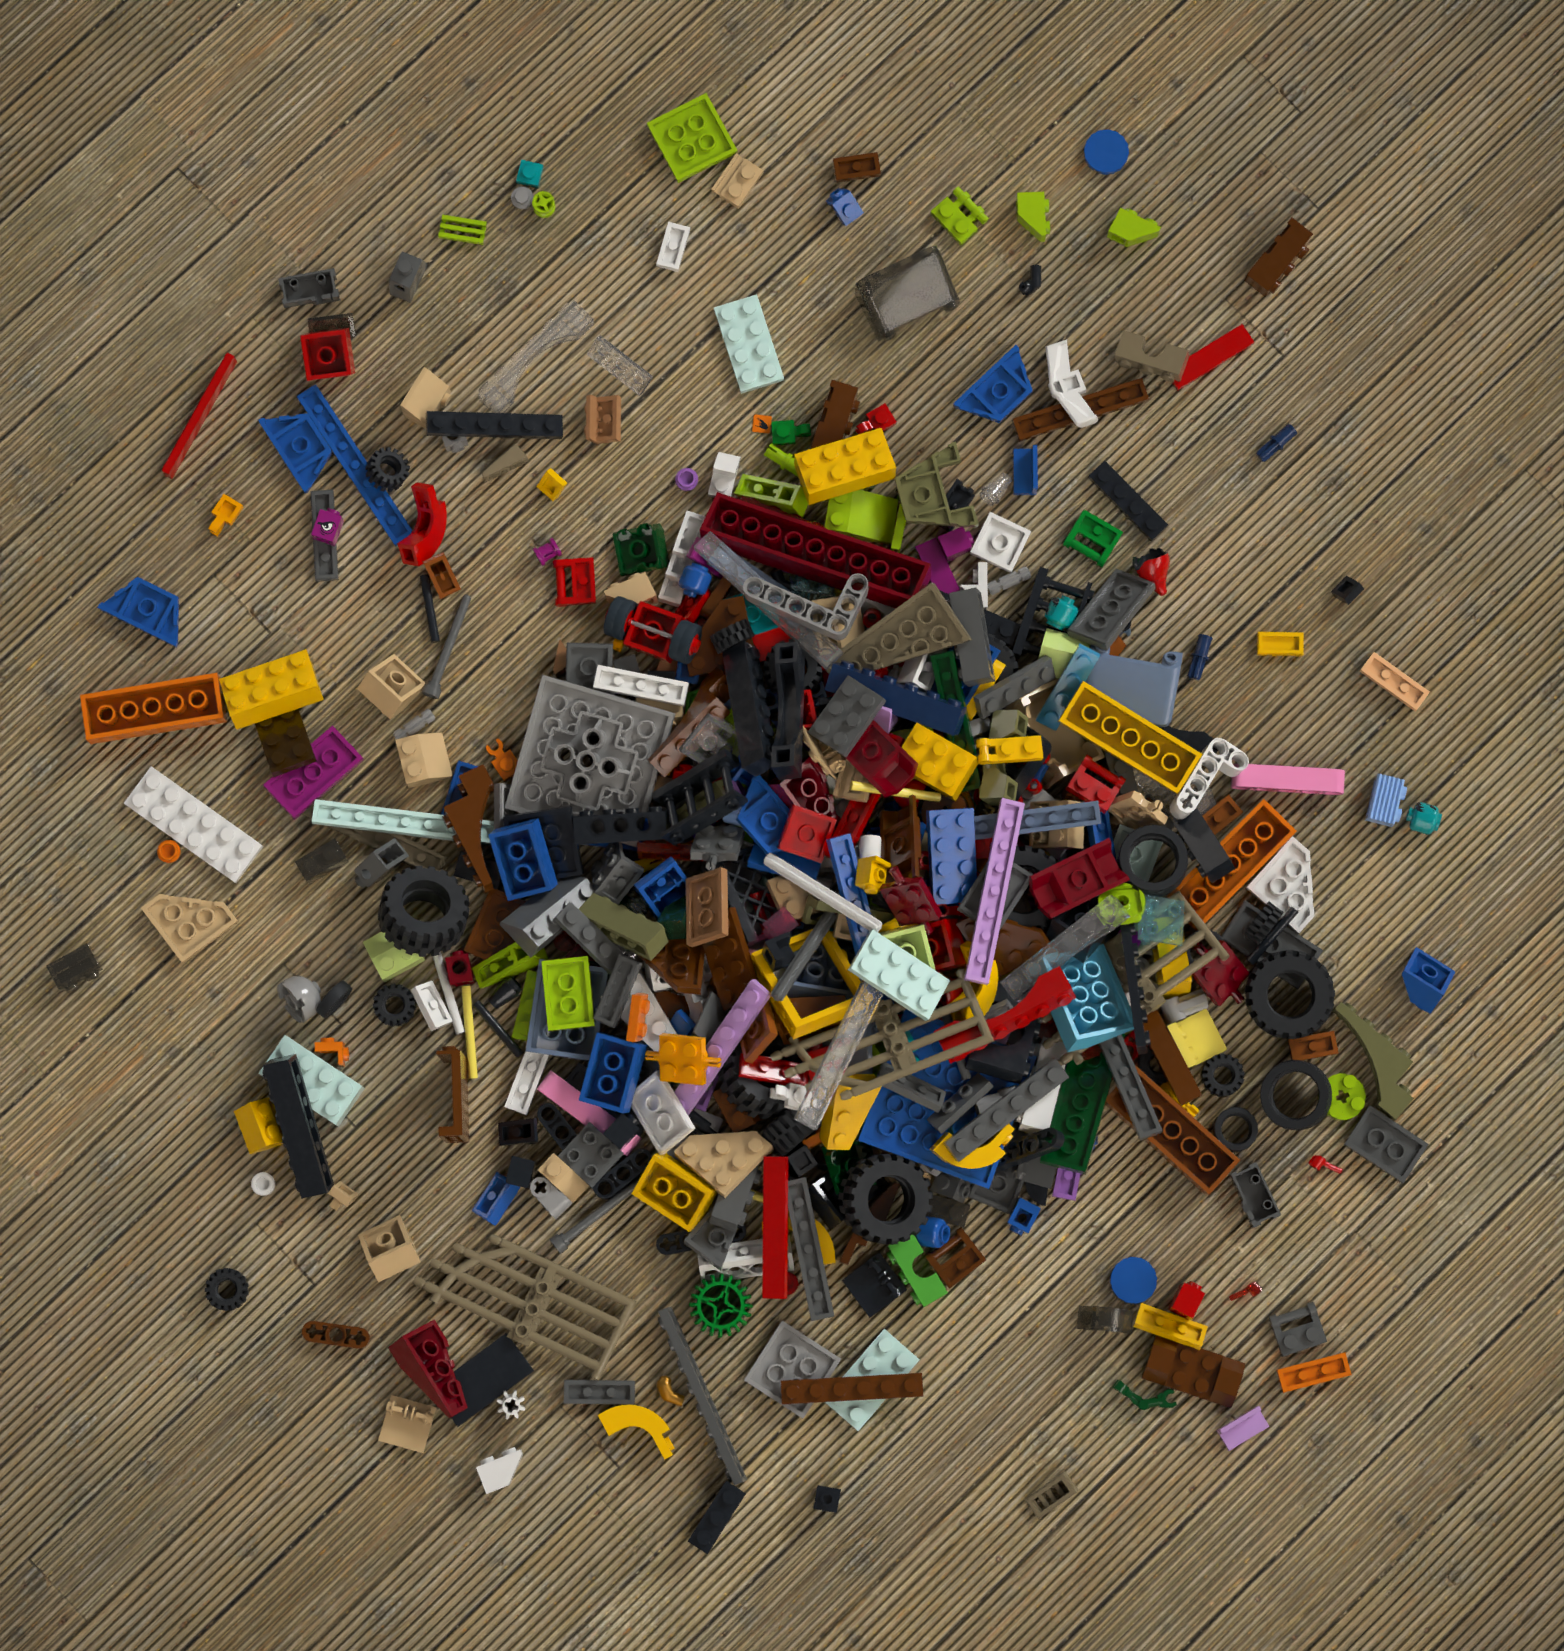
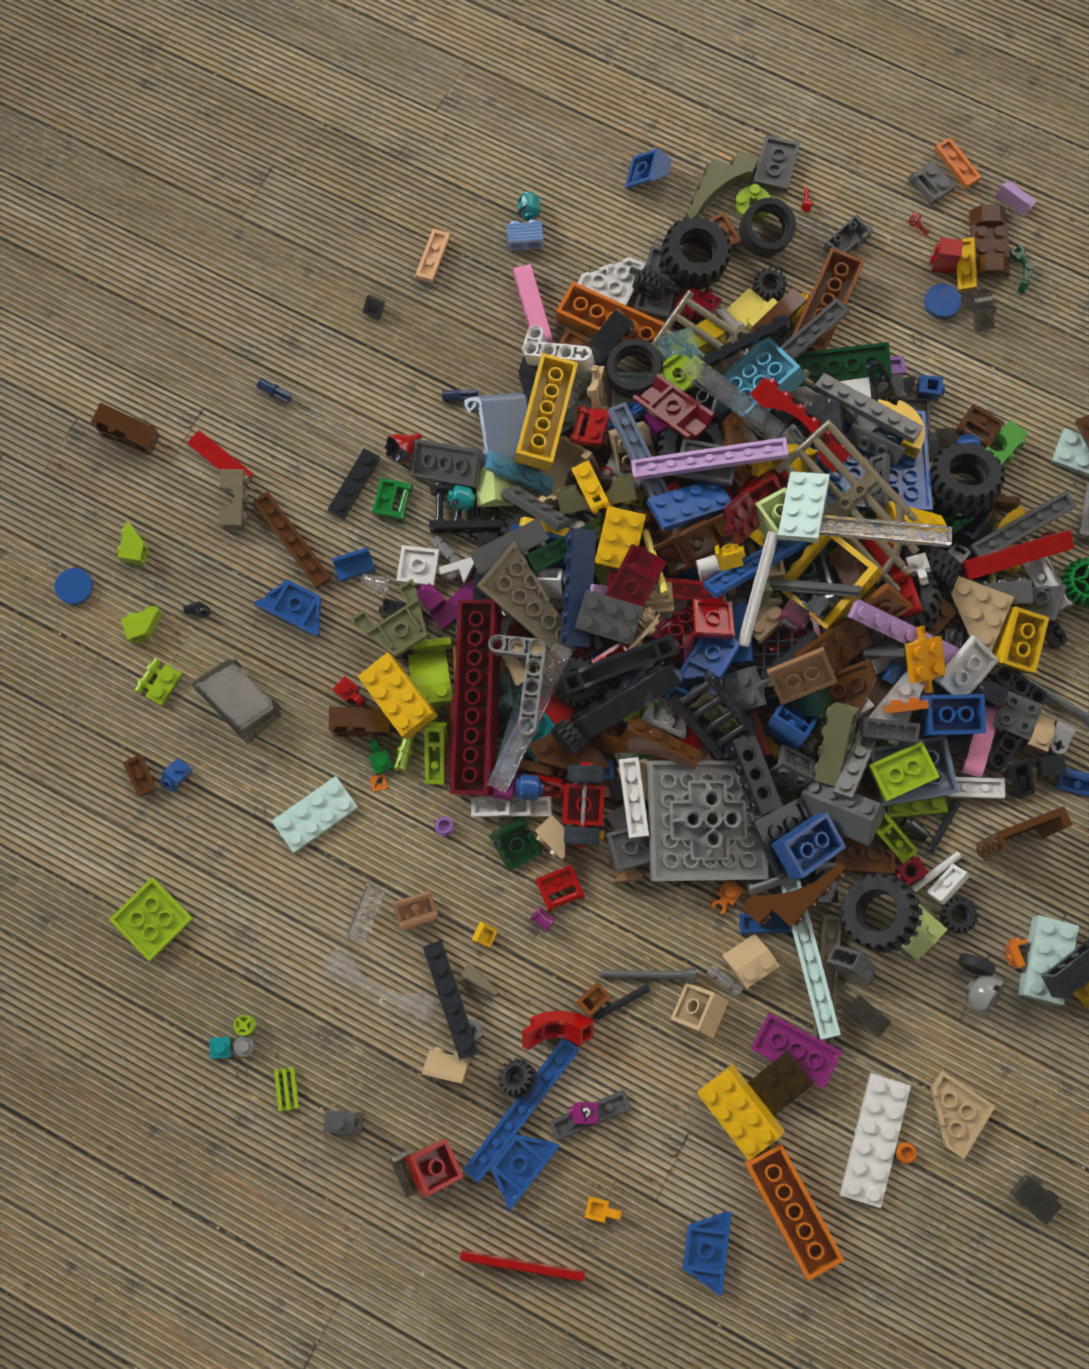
camera: 105 degrees left, 5 degrees down
(309, 288) = (379, 1206): dark grey piece -> none
(469, 1032) = (956, 847): light yellow bar -> none
(673, 246) = (250, 903): white plate -> none
(724, 474) = (433, 797): white slope -> none
(737, 181) = (178, 869): tan plate -> none
(874, 1285) = (1023, 477): black hinge -> none
(1068, 385) = (275, 554): white plate -> none
(1247, 1116) = (810, 252): black tyre -> none
(1280, 643) = (430, 343): yellow tile -> none

